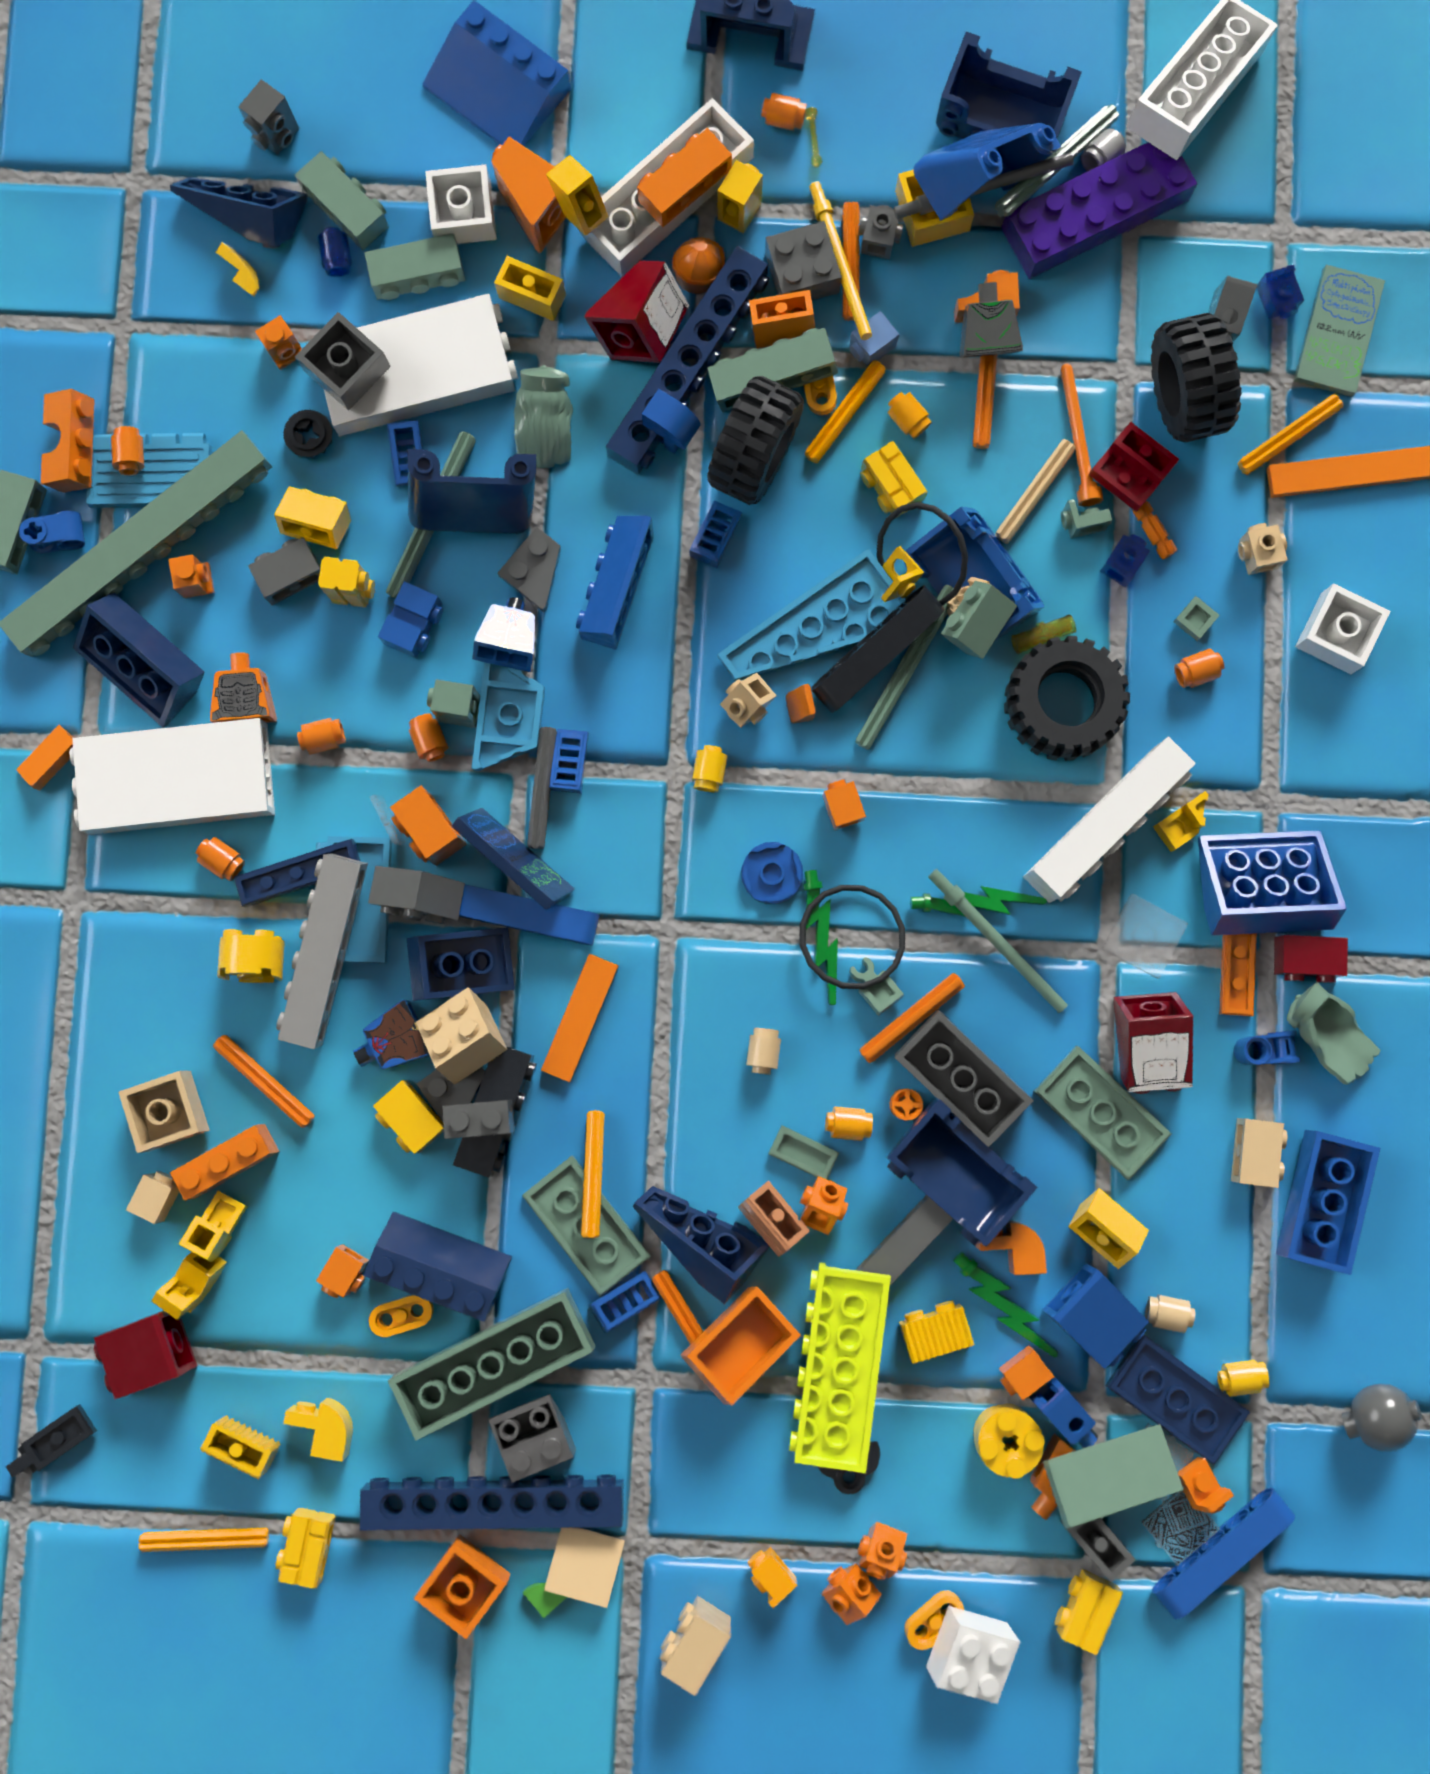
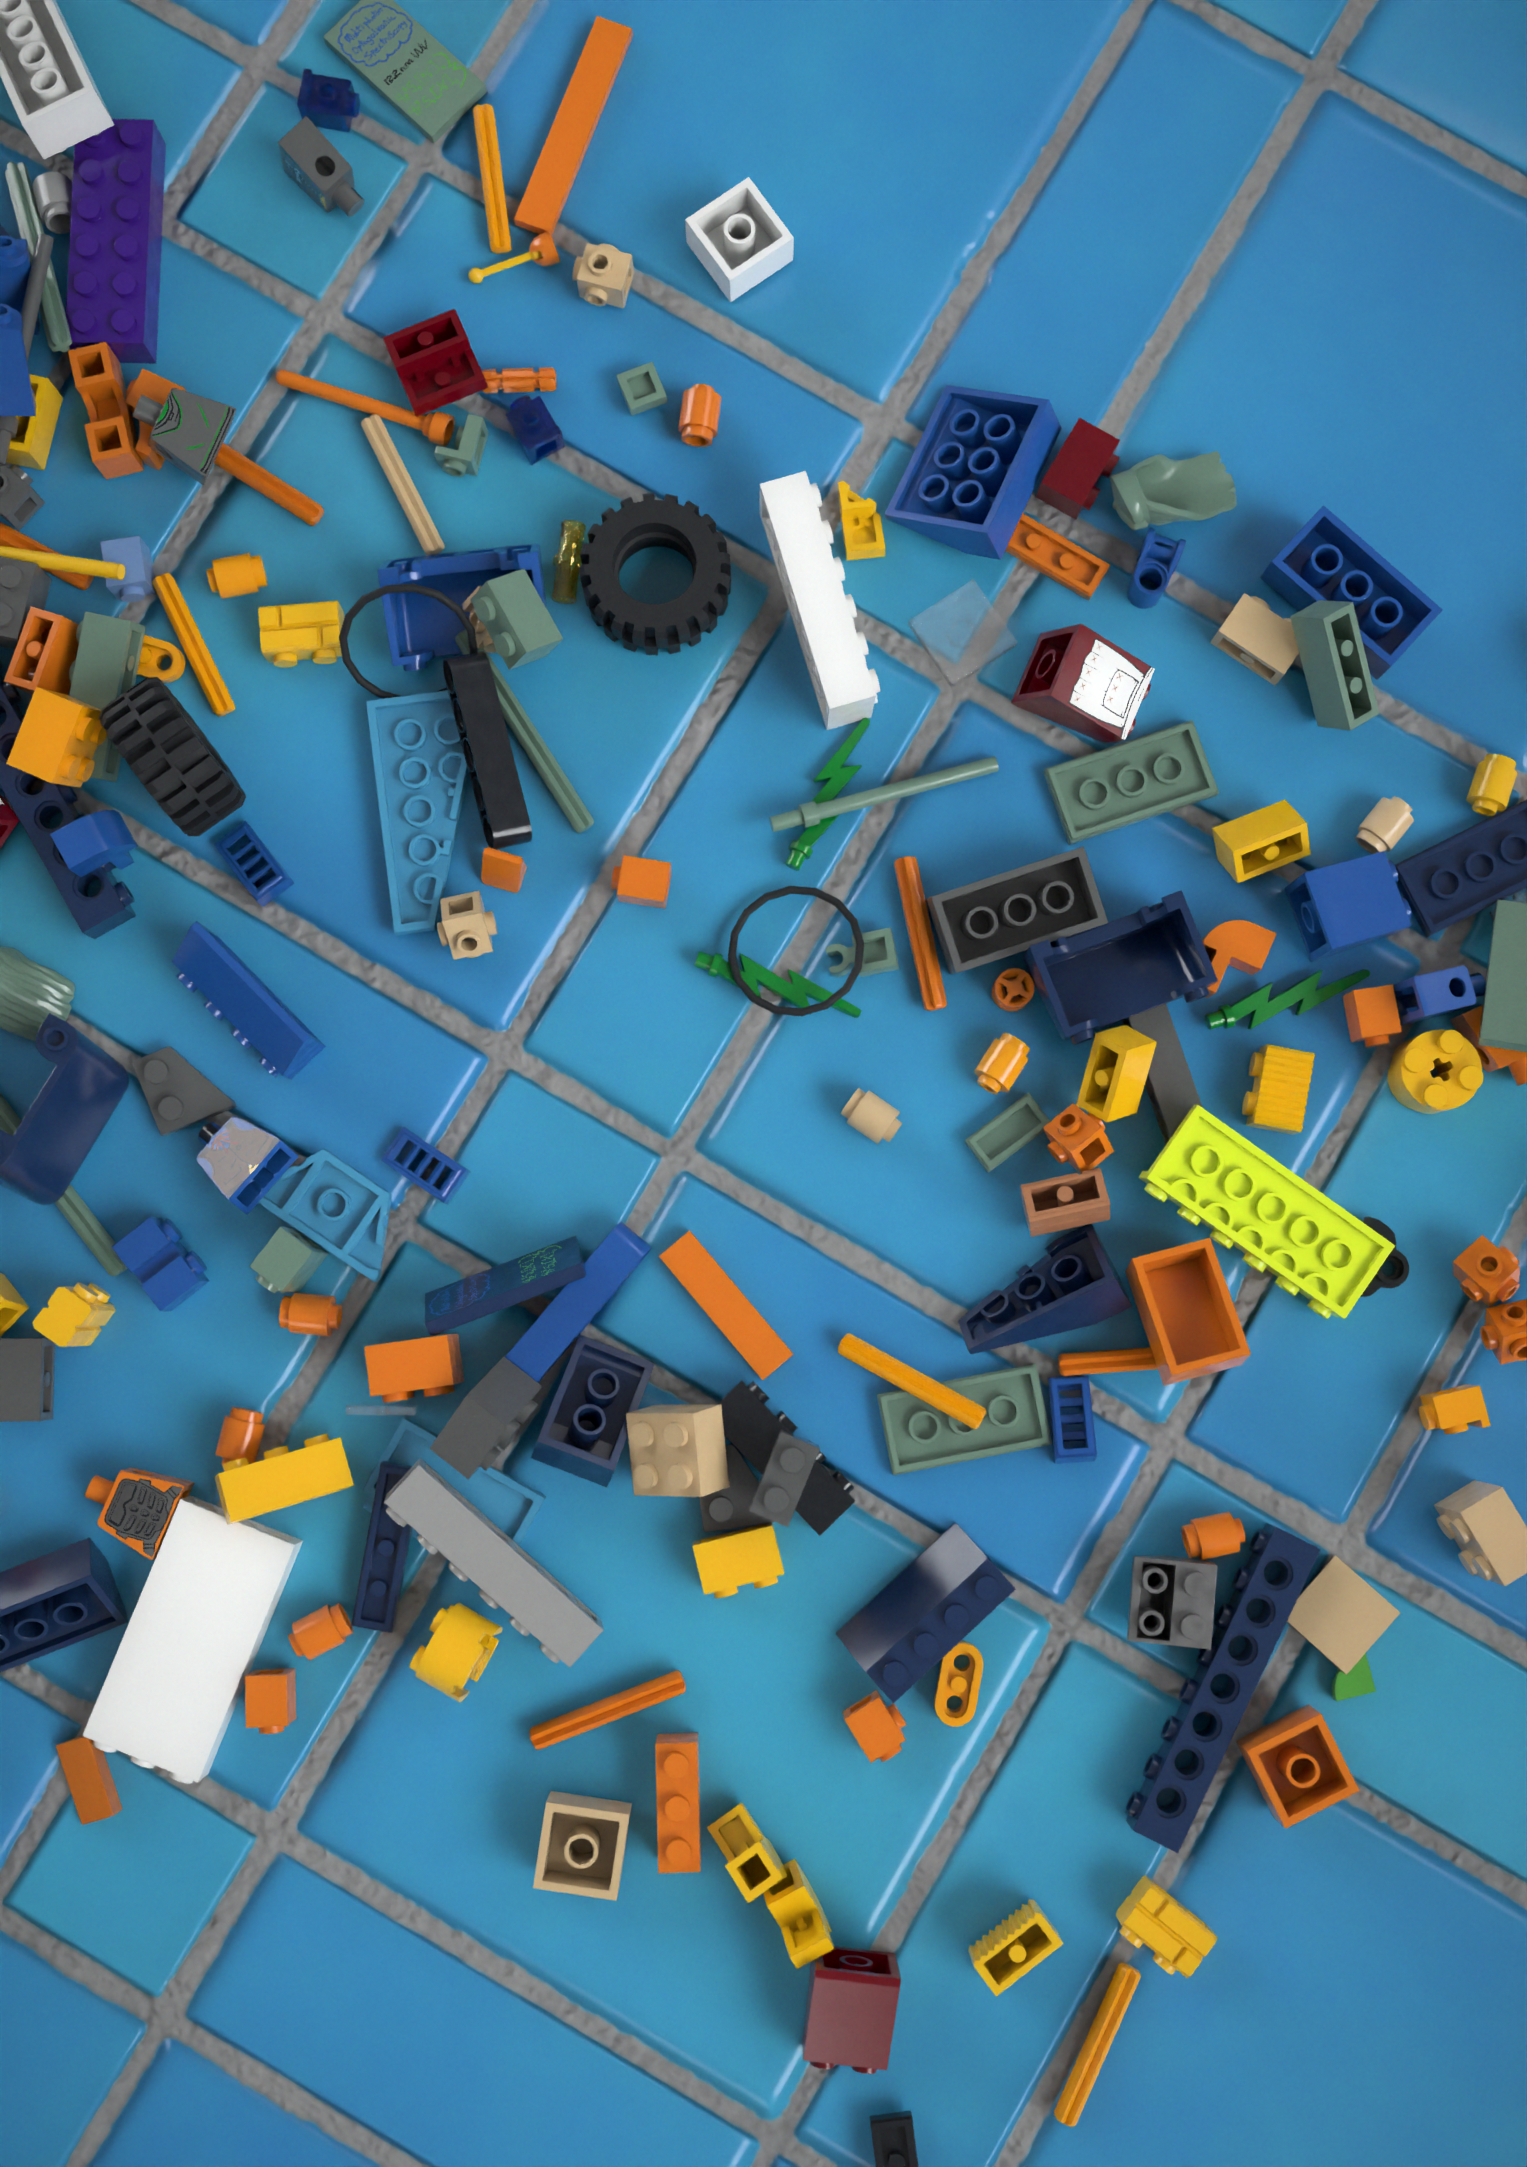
camera: 70 degrees left, 0 degrees up
(153, 1197) = (676, 1907): tan brick -> none
(157, 849) = (270, 1699): none -> orange brick
(307, 778) = (283, 1478): none -> yellow brick
(331, 1425) = (1043, 1828): yellow brick -> none
(393, 1038) = (639, 1532): torso -> none
(491, 1364) = (1066, 1606): sand green brick -> none
(541, 788) = (439, 1212): dark grey axle -> none
(593, 1445) = (1213, 1536): none -> orange brick
(709, 769) = (521, 1010): yellow brick -> none
(725, 357) = (58, 739): none -> light orange brick
(772, 873) = (676, 1003): blue tile -> none
(883, 1208) = (1116, 1073): none -> yellow brick
(902, 584) = (430, 680): yellow bracket -> none
(961, 277) = (111, 424): none -> orange arch
(1196, 377) = (373, 237): black tyre -> none
(1256, 497) = (541, 251): none -> hinge
(1266, 1216) = (1335, 664): none -> sand green brick

